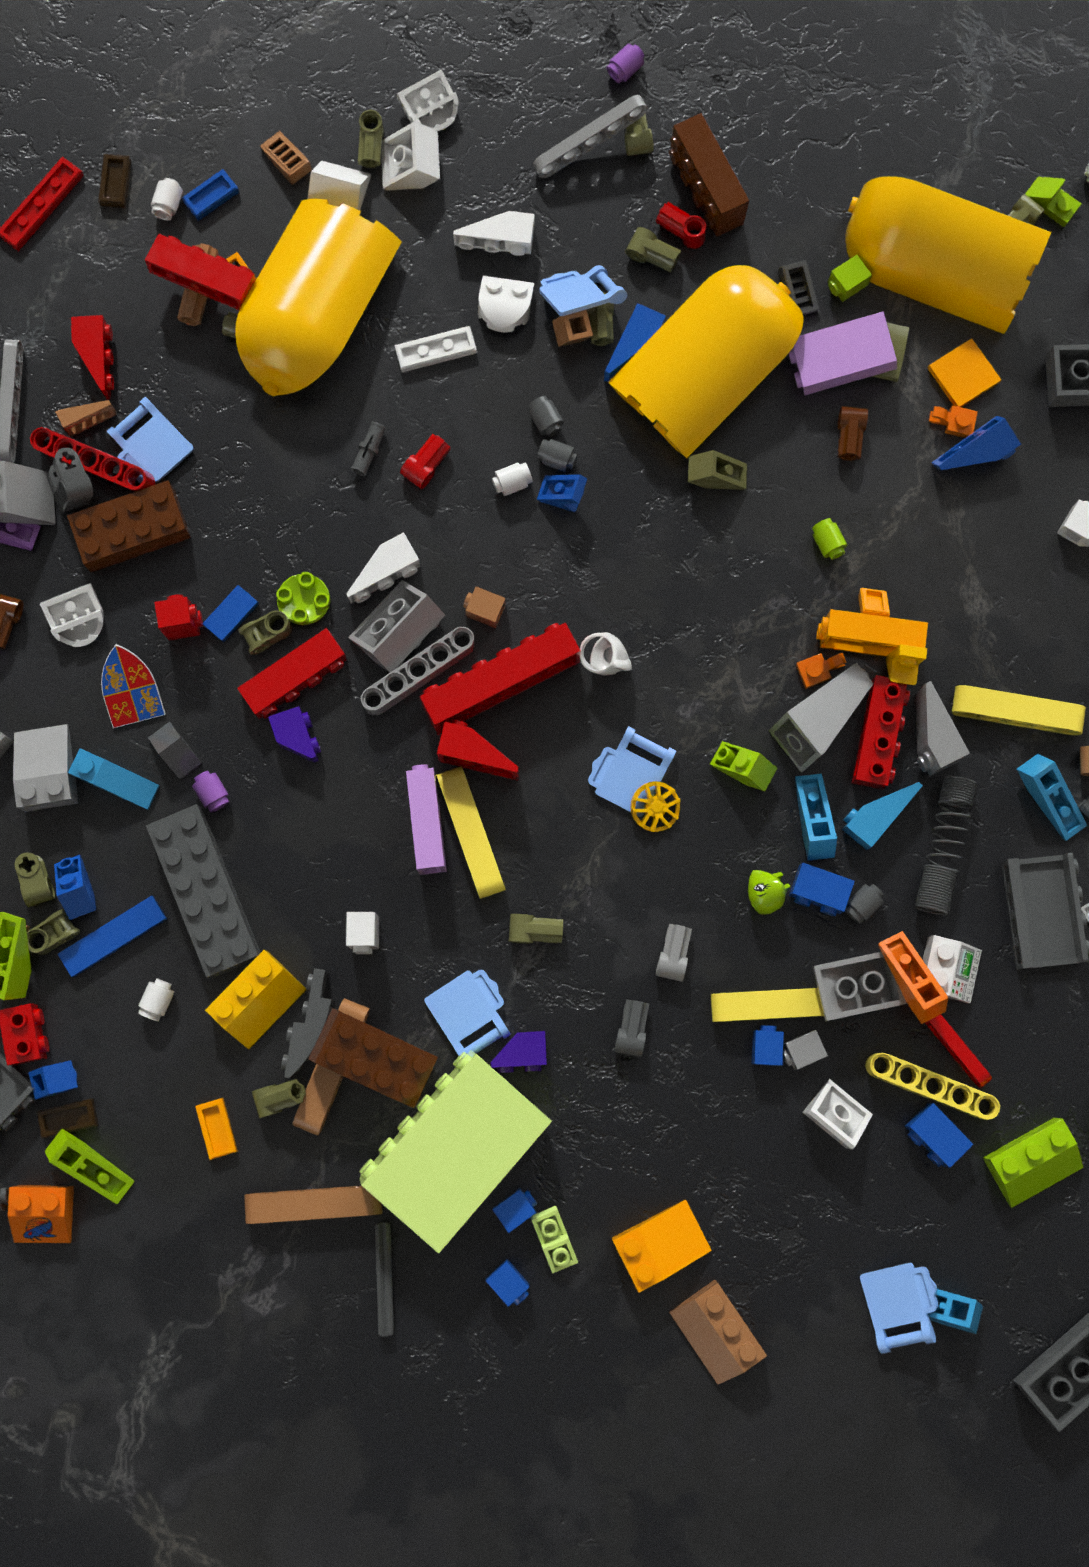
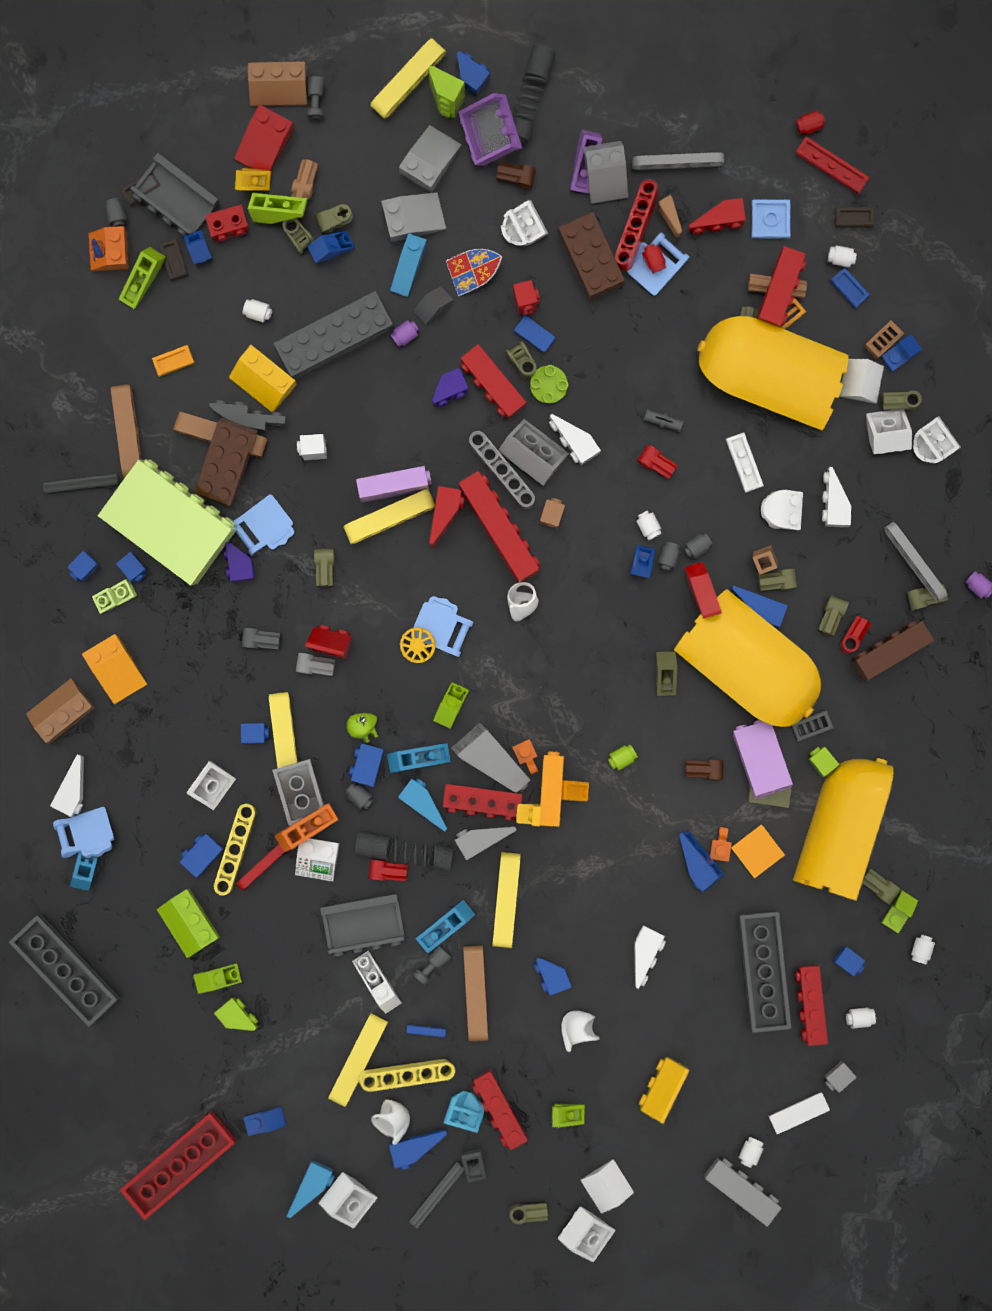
camera: 85 degrees right, 5 degrees up
(72, 485) = (616, 211): dark grey piece -> none
(104, 288) = (770, 219): none -> light blue tile
(112, 936) = (299, 276): blue tile -> none
(142, 440) = (654, 258): none -> red brick
(275, 1098) = (195, 399): olive piece -> none
(306, 136) = (901, 353): none -> blue slope
(577, 292) = (791, 559): light blue piece -> none
(609, 409) = (702, 590): none -> slope
(646, 926) = (329, 642): none -> red slope
(803, 1050) = (253, 758): light grey brick -> none
(837, 1322) = (71, 790): none -> white slope
(971, 878) = (383, 870): none -> red piece

